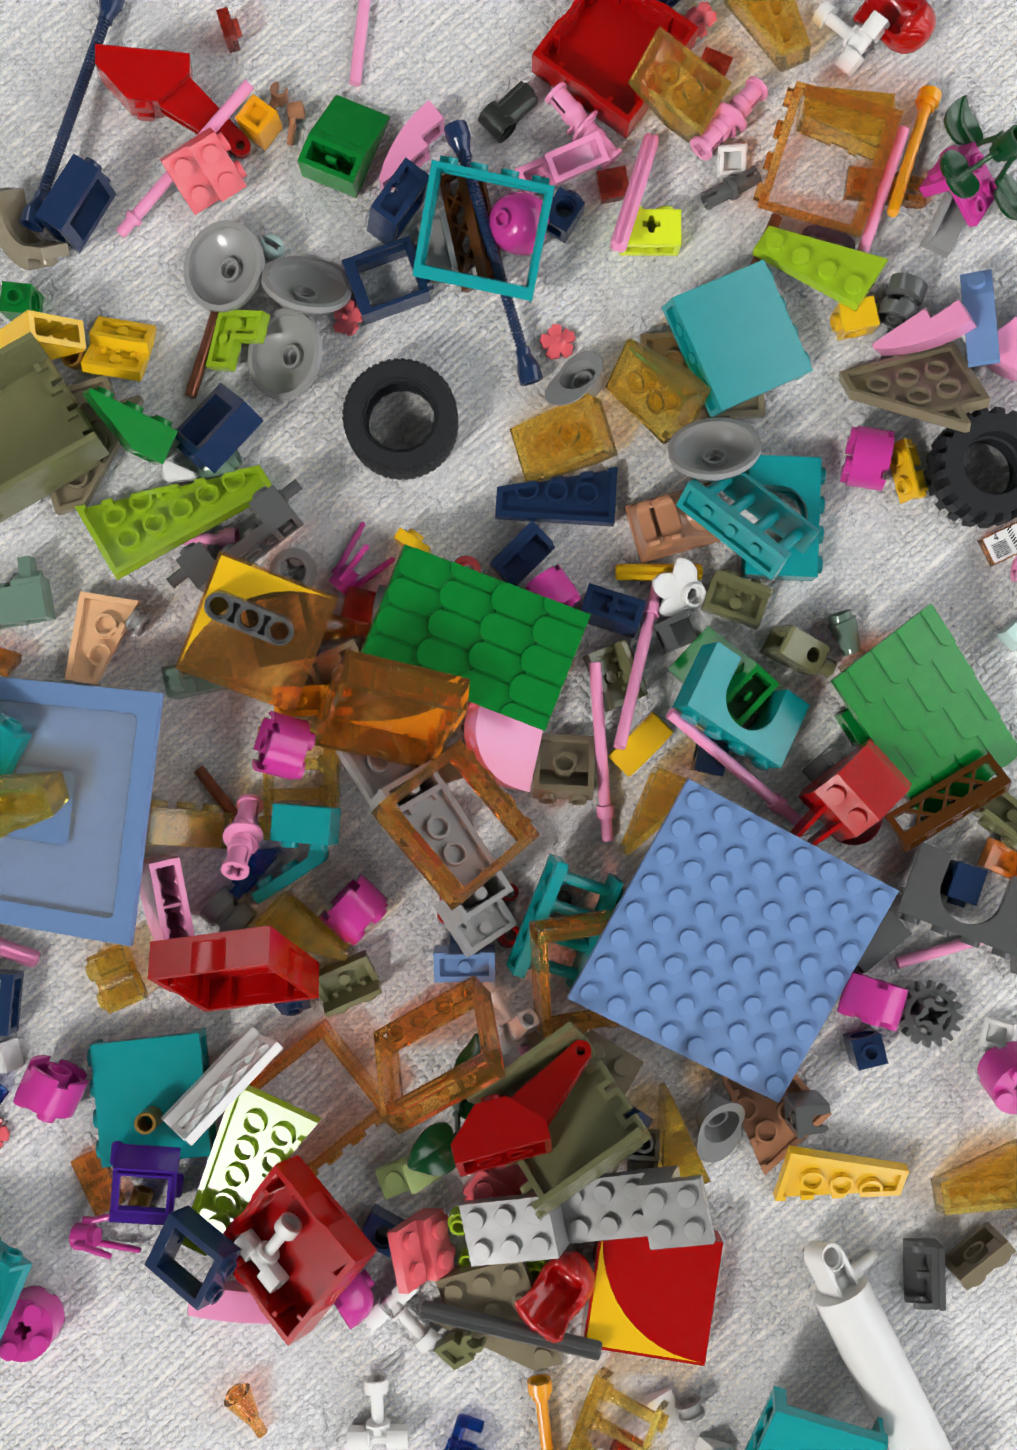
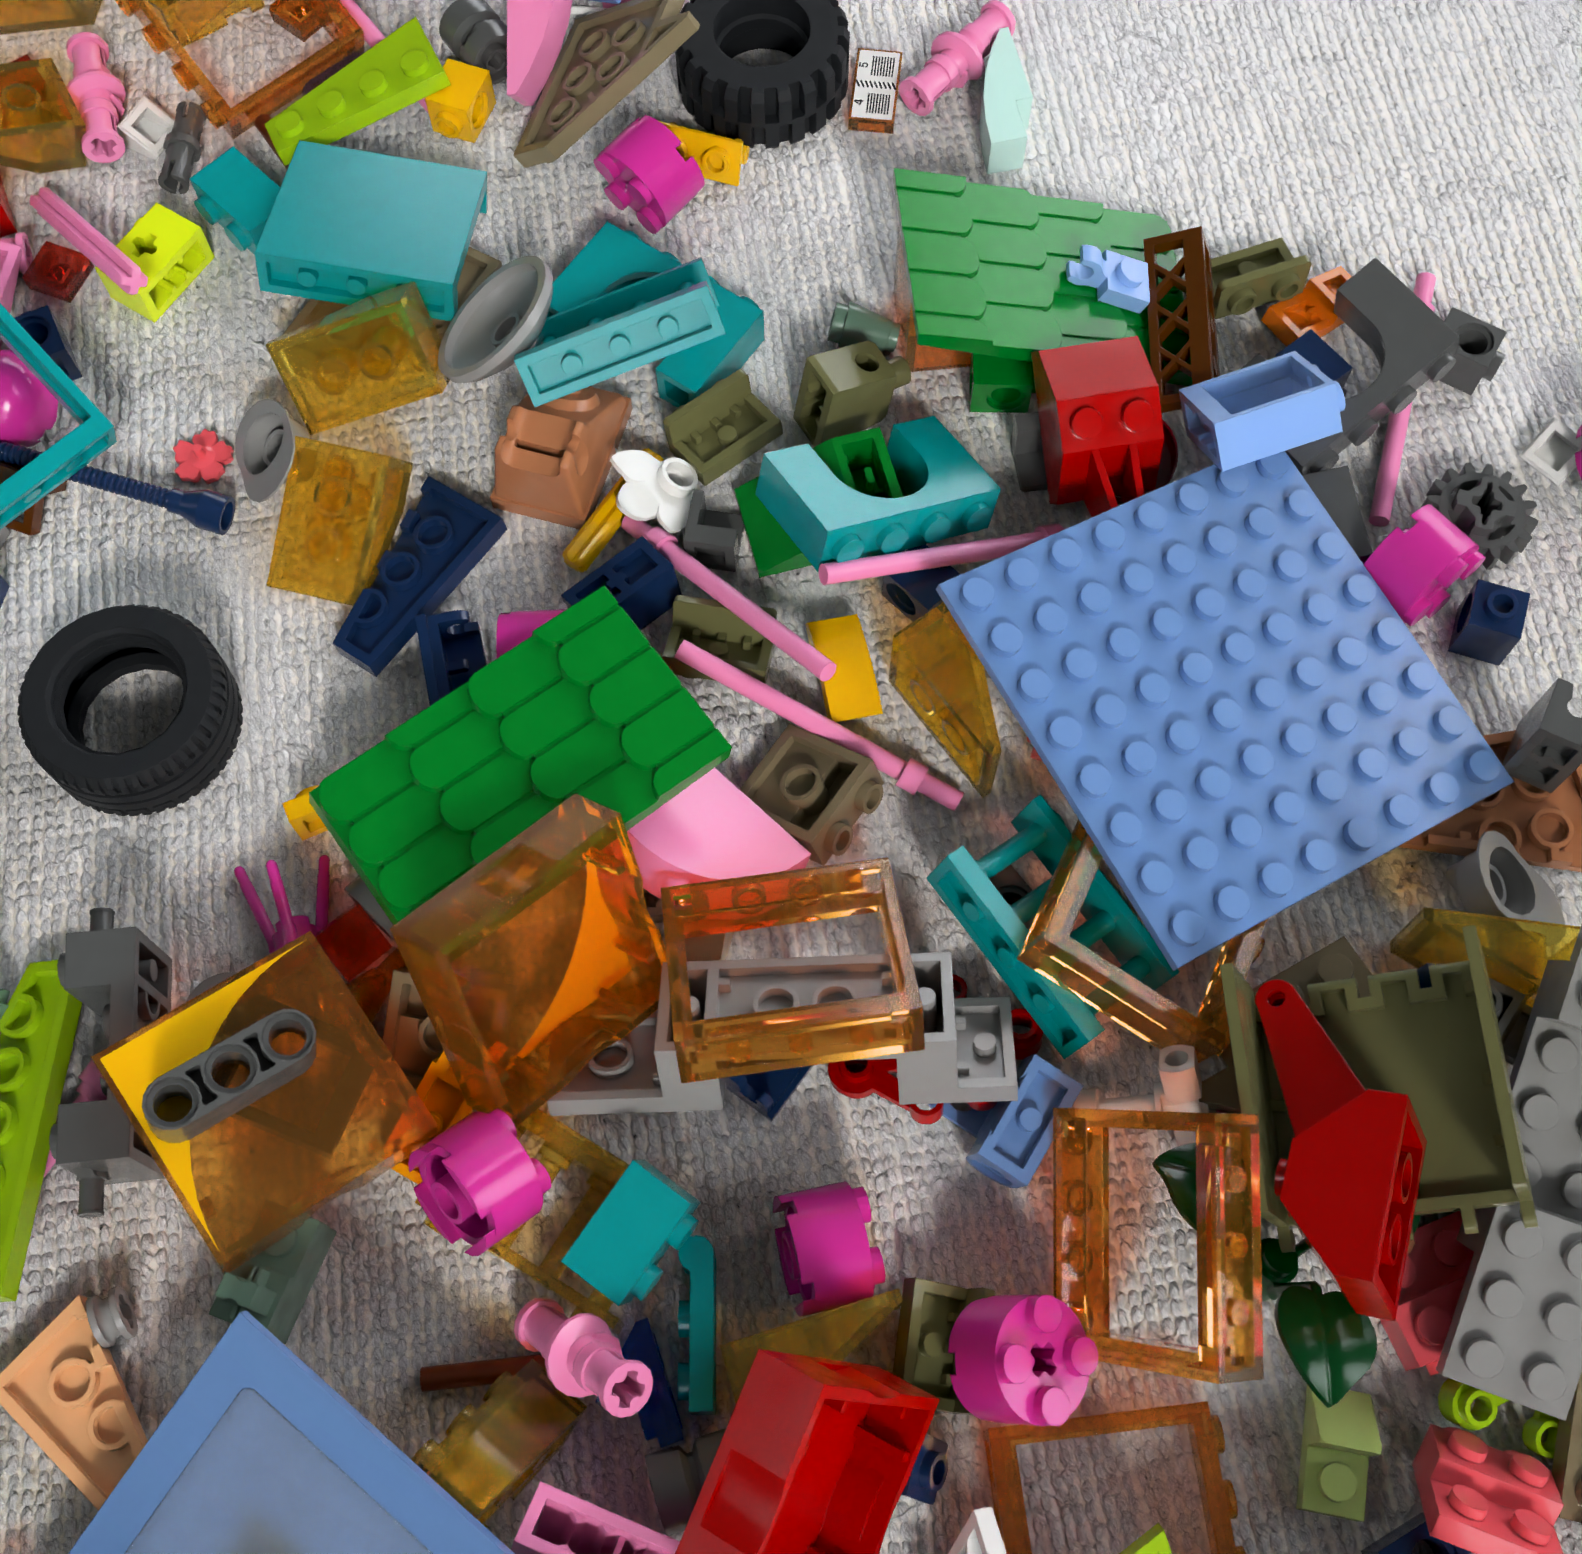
camera: 60 degrees left, 20 degrees down
(356, 1023) = (1021, 1359): none -> dark pink brick
(716, 249) = (236, 197): none -> teal brick
(916, 863) = (1262, 410): none -> light blue window
(952, 752) = (1118, 278): none -> light blue plate

